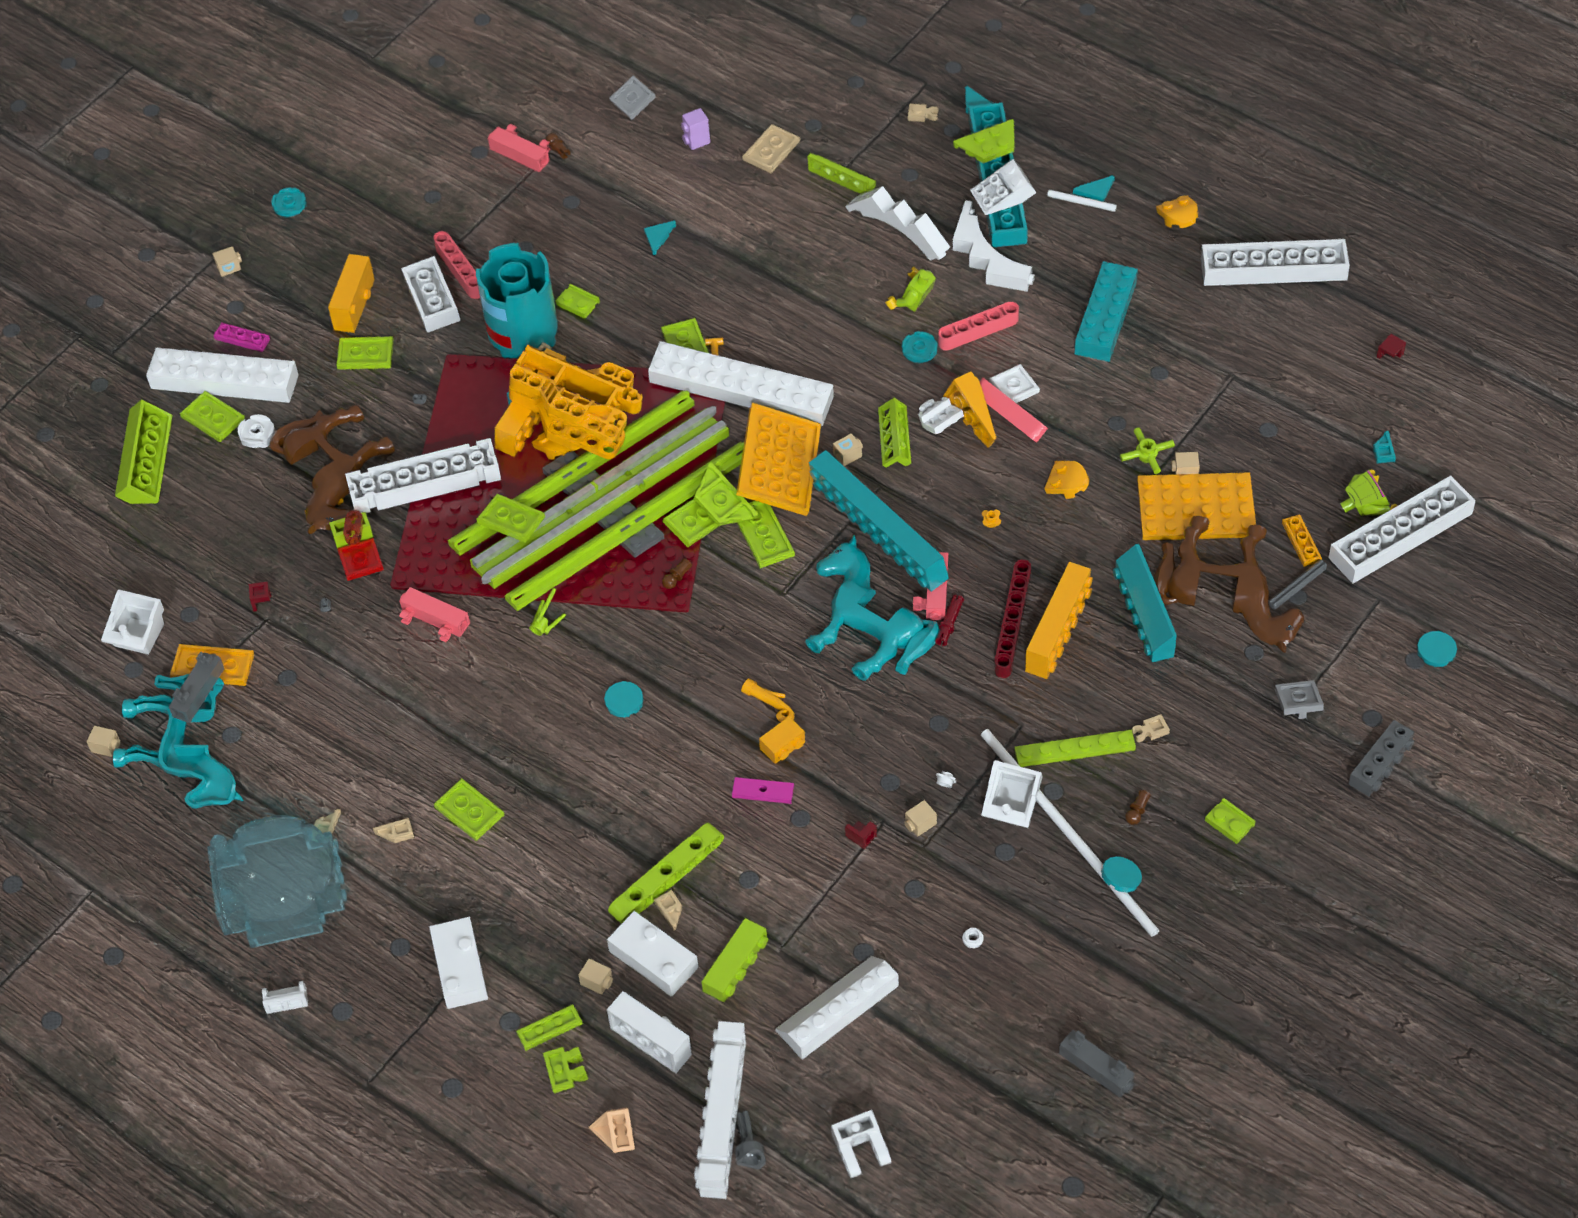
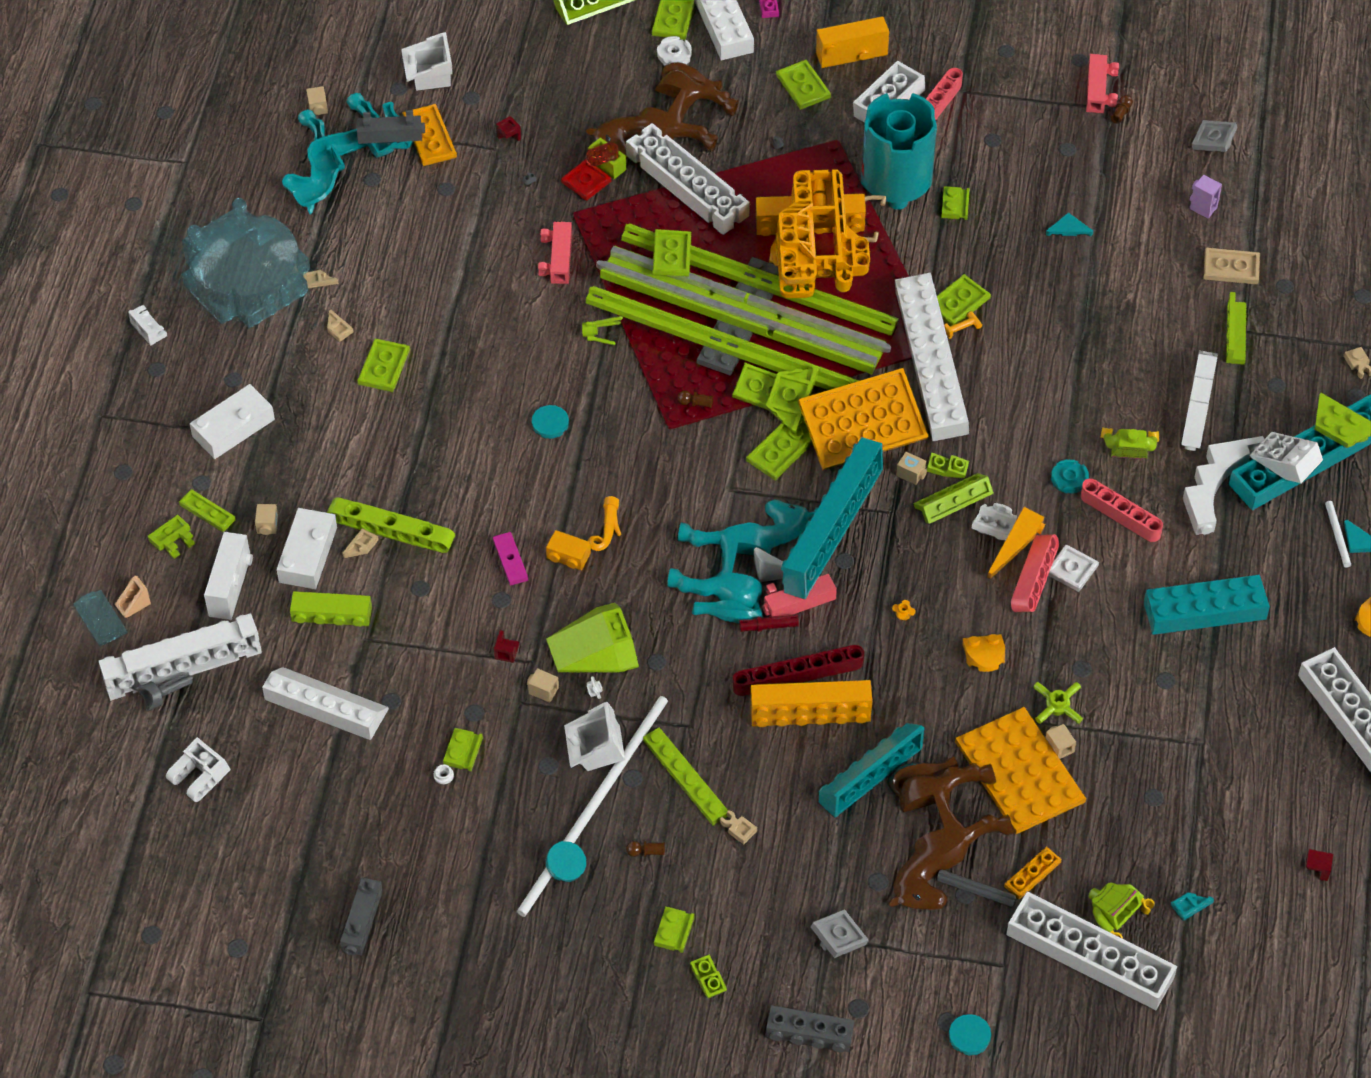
camera: 60 degrees right, 0 degrees up
(622, 1172) = (100, 617): none -> clear light blue piece
(859, 424) = (943, 466): none -> lime slope
(888, 596) = (767, 566): none -> white slope
(895, 758) = (594, 643): none -> lime wedge
(952, 912) = (462, 749): none -> lime plate
(1293, 814) = (708, 976): none -> lime slope

